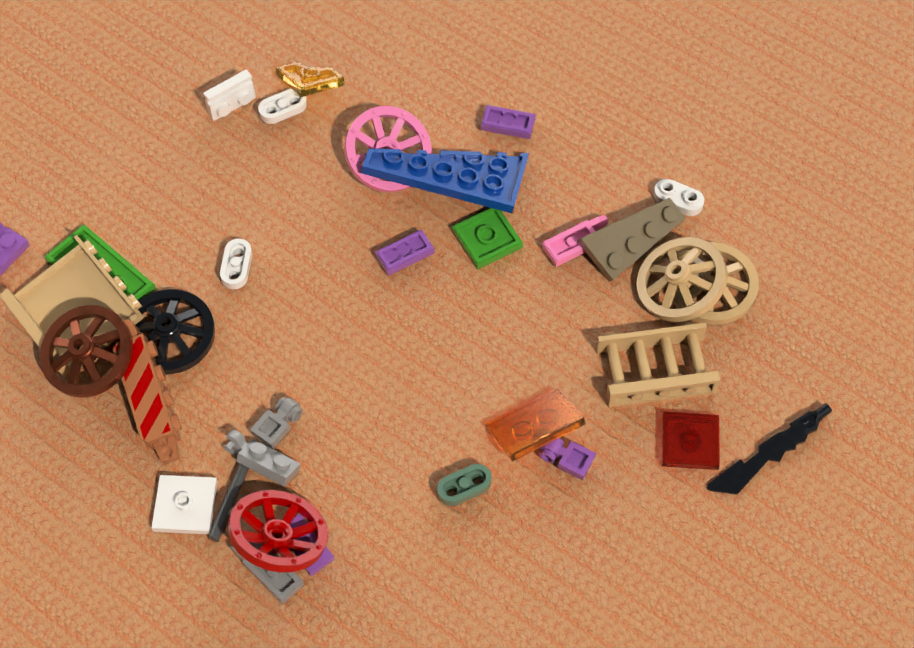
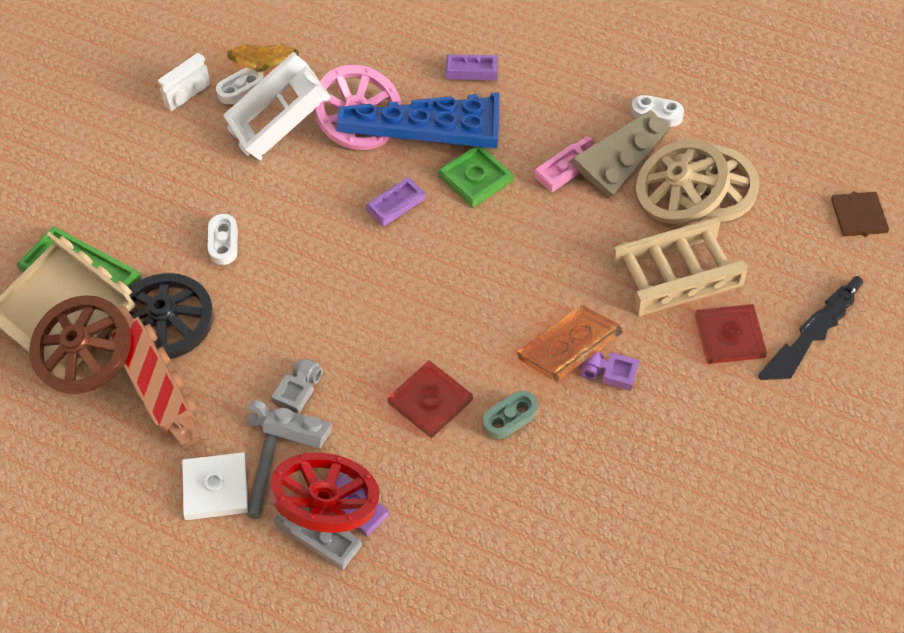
camera: 10 degrees left, 5 degrees down
(344, 128) = (289, 72): none -> white door
(394, 456) = (430, 398): none -> clear red plate
(849, 339) = (859, 214): none -> reddish brown piece

